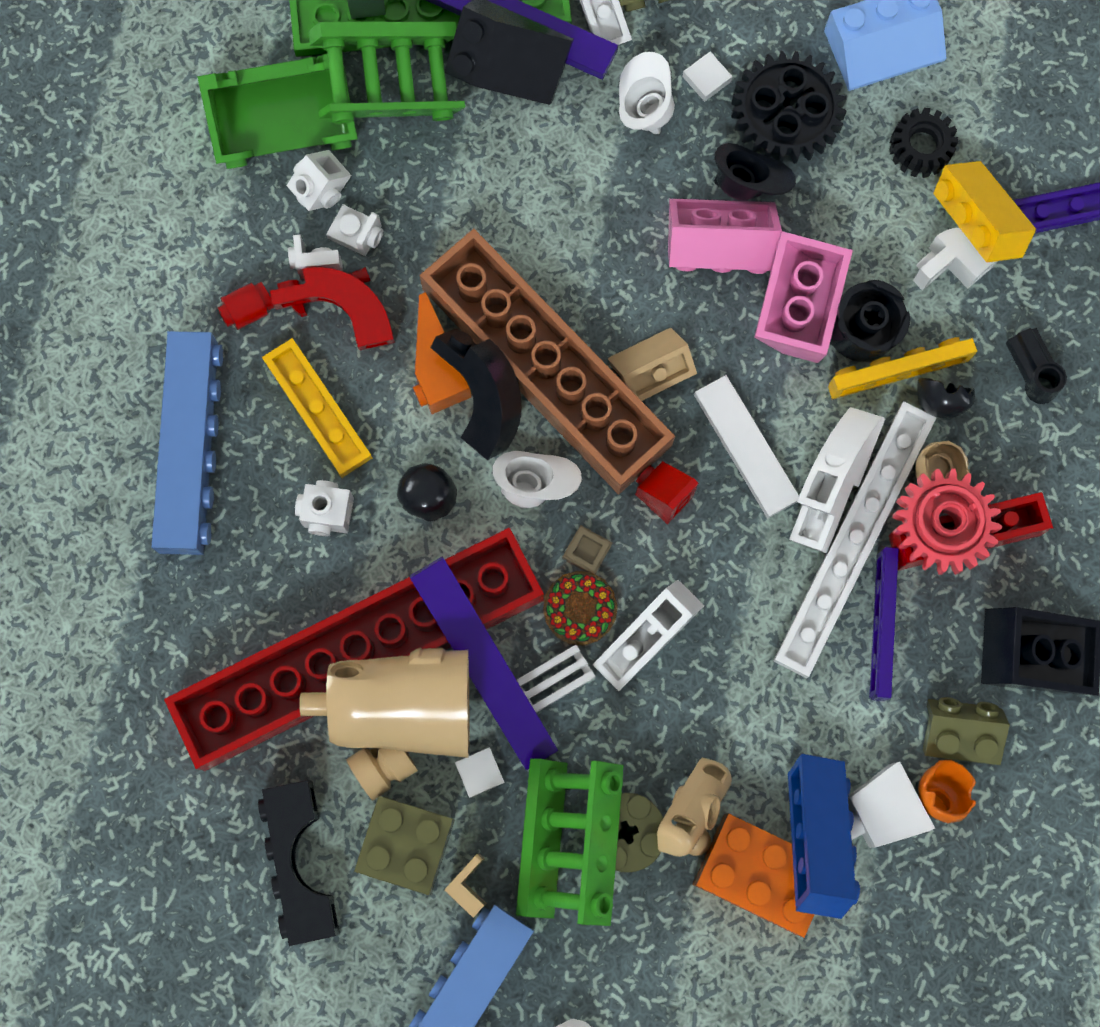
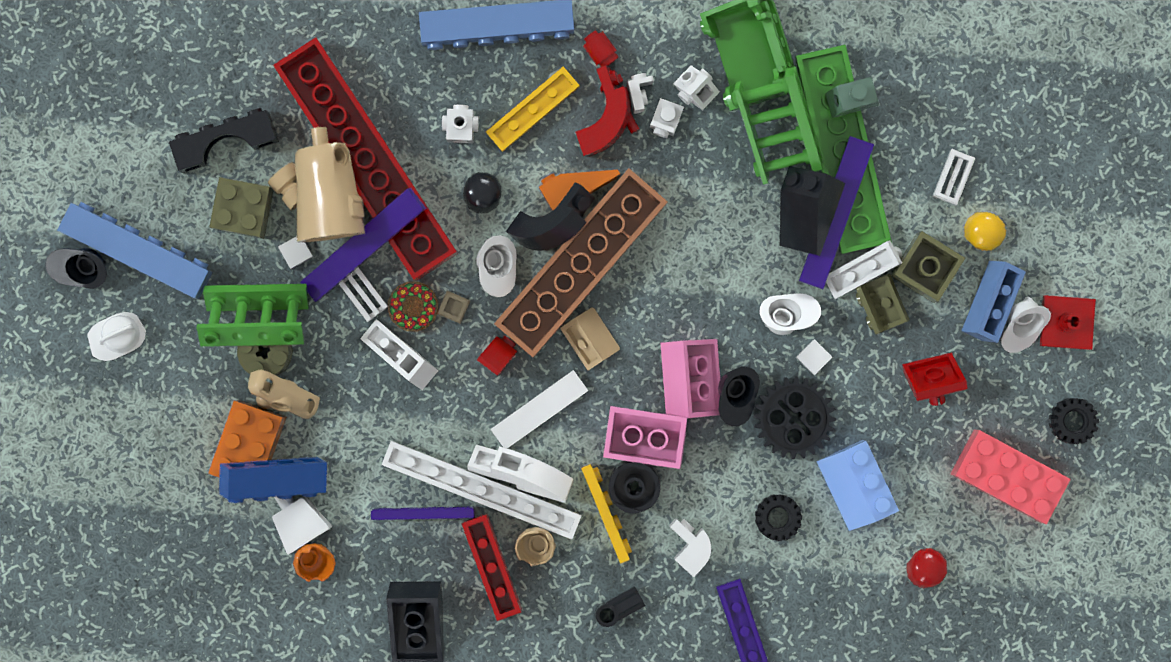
camera: 85 degrees right, 10 degrees up
(462, 893) = (213, 250): tan panel -> none
(930, 538) = (489, 563): coral gear -> none
(944, 402) = (585, 545): black hair -> none
(965, 731) = (358, 573): olive bracket -> none
(984, 211) = (723, 560): yellow brick -> none

